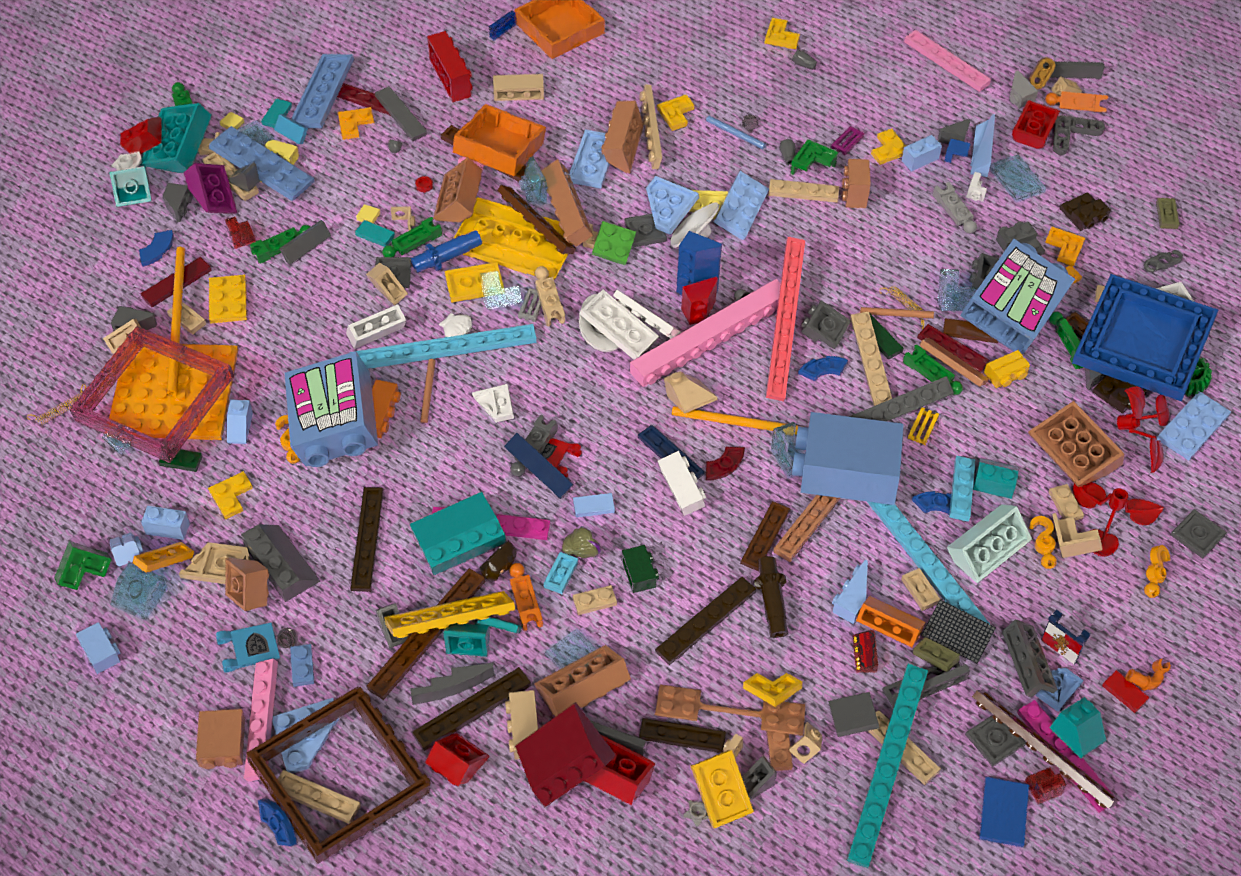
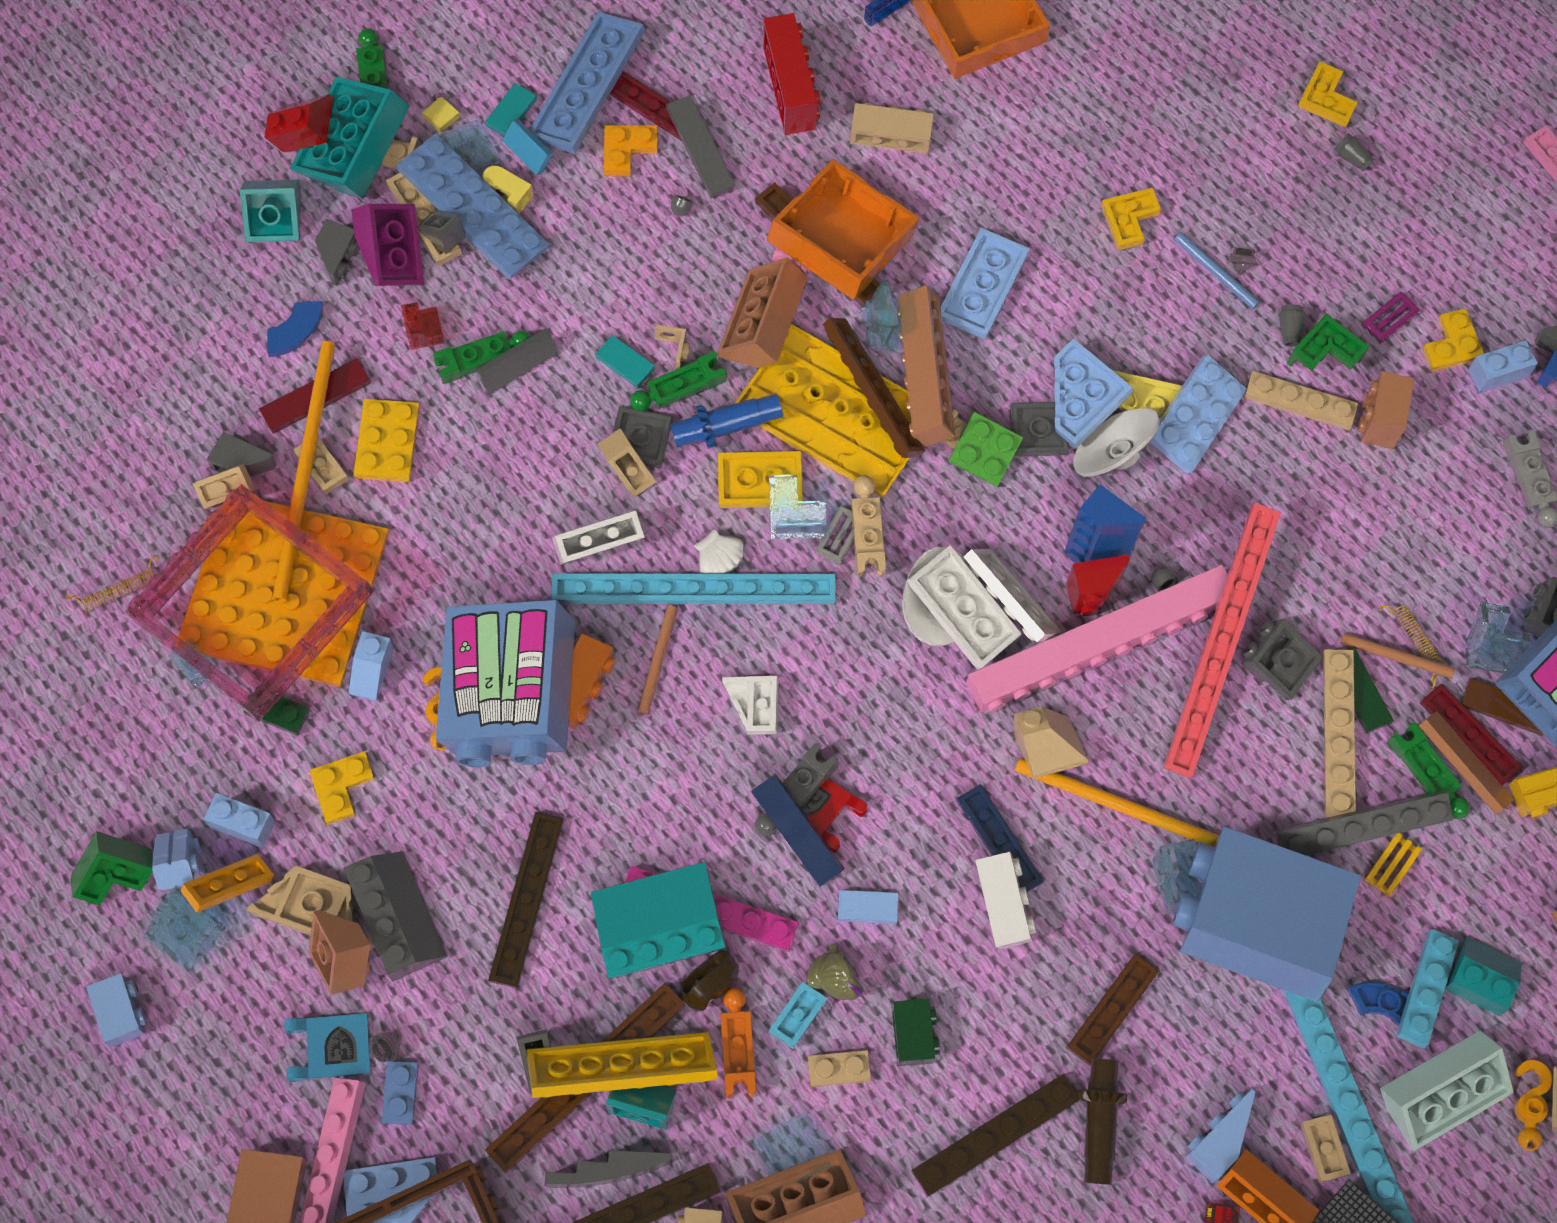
camera: 10 degrees right, 15 degrees up
(127, 161) = (273, 163): white animal -> none
(368, 213) = (620, 324): light yellow tile -> none
(424, 184) = (714, 283): red tile -> none
(501, 624) = (704, 1092): teal tile -> none
(623, 135) = (1037, 253): nougat slope -> none
(651, 129) = (1084, 246): tan plate -> none
(725, 464) = (1079, 873): dark red tile -> none
(804, 526) = (1173, 1008): nougat plate -> none
(818, 367) = (1262, 728): blue tile -> none

